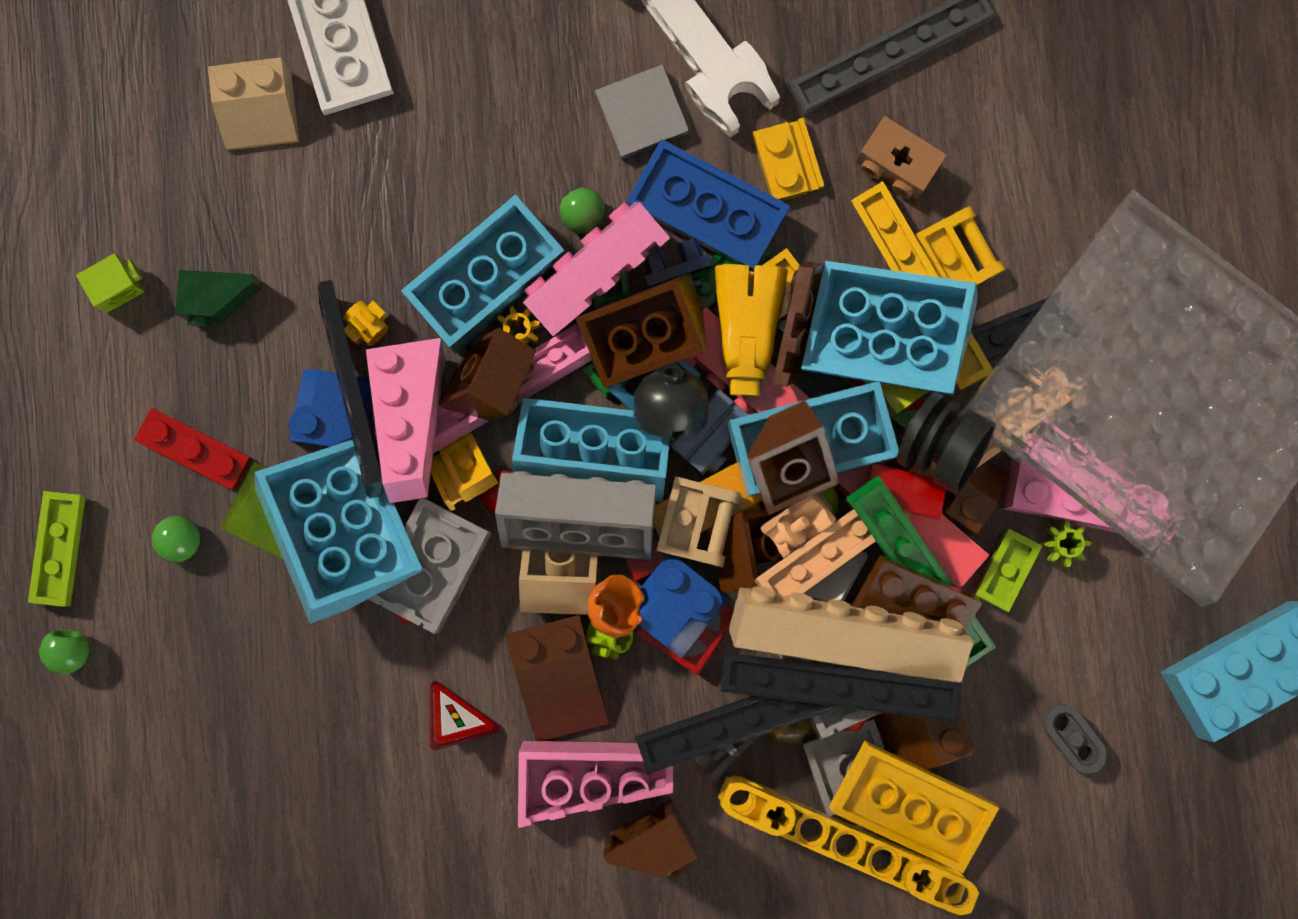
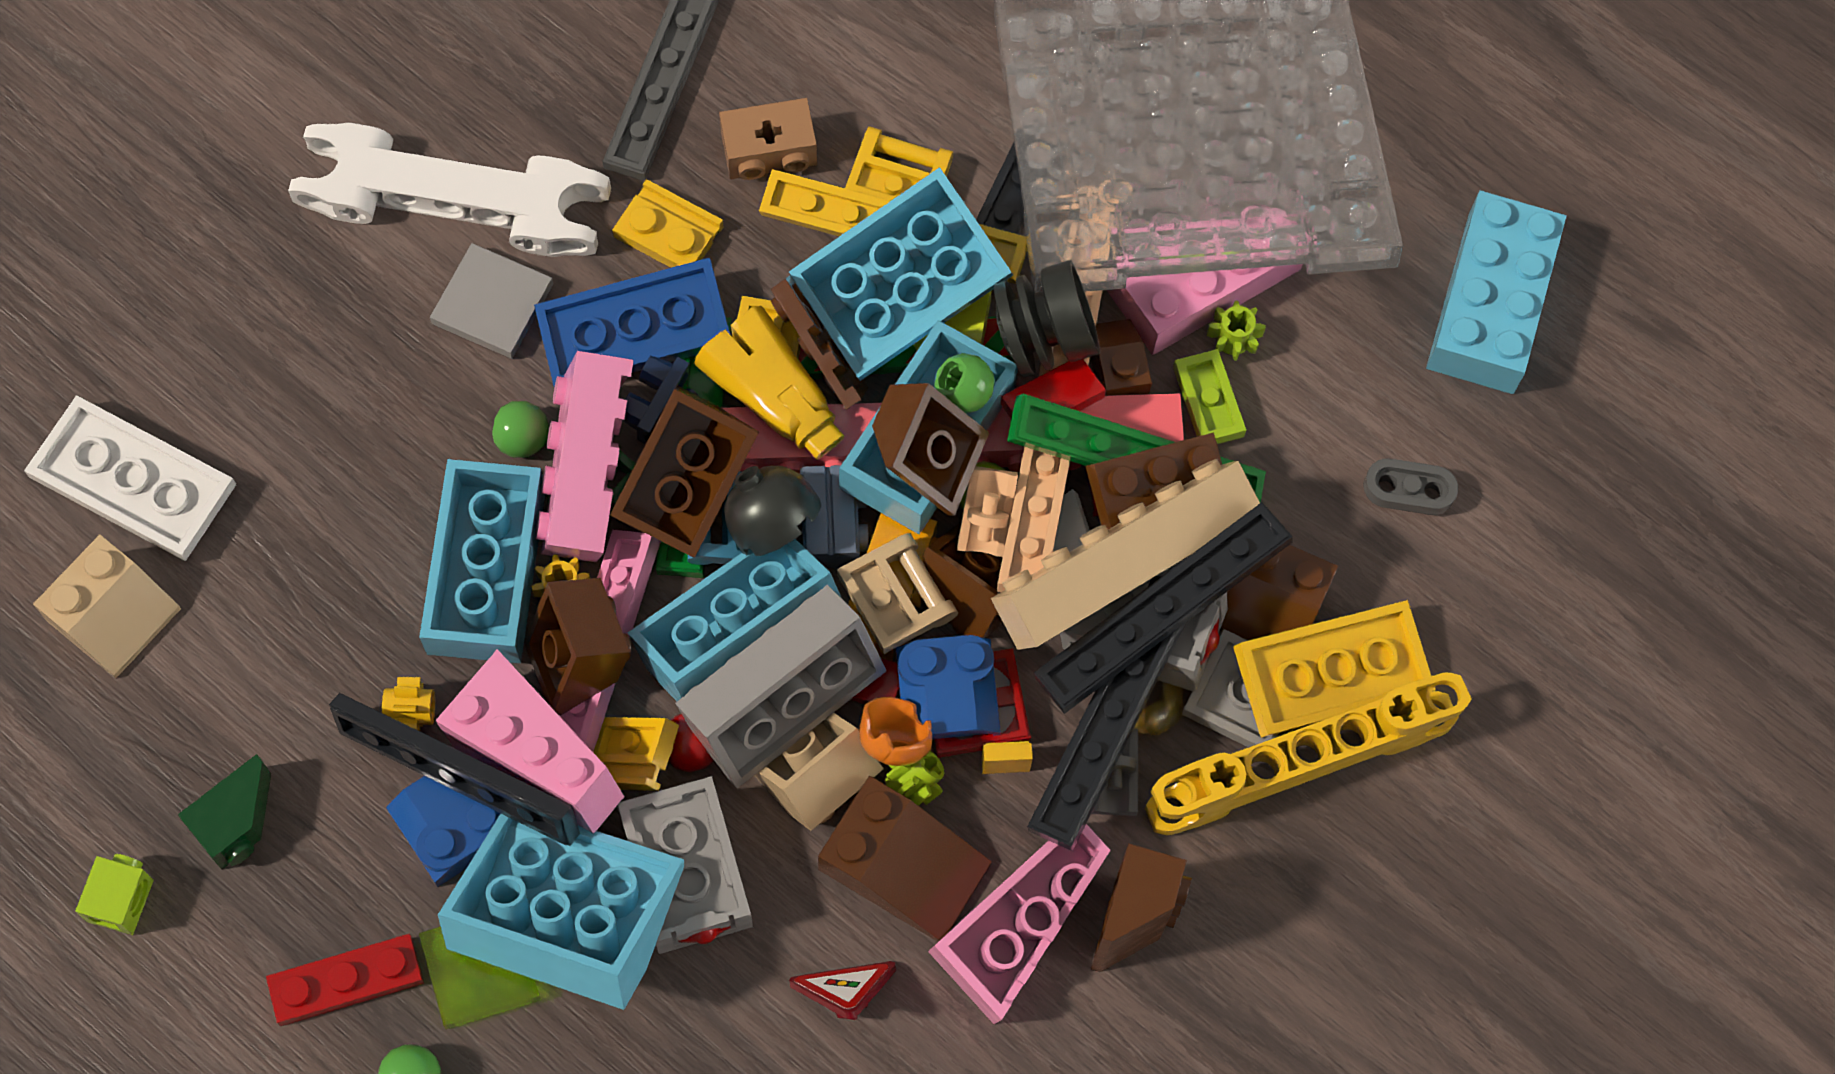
camera: 45 degrees left, 15 degrees down
(673, 674) = (1006, 757): none -> yellow tile
(852, 440) = (965, 381): none -> bright green piece

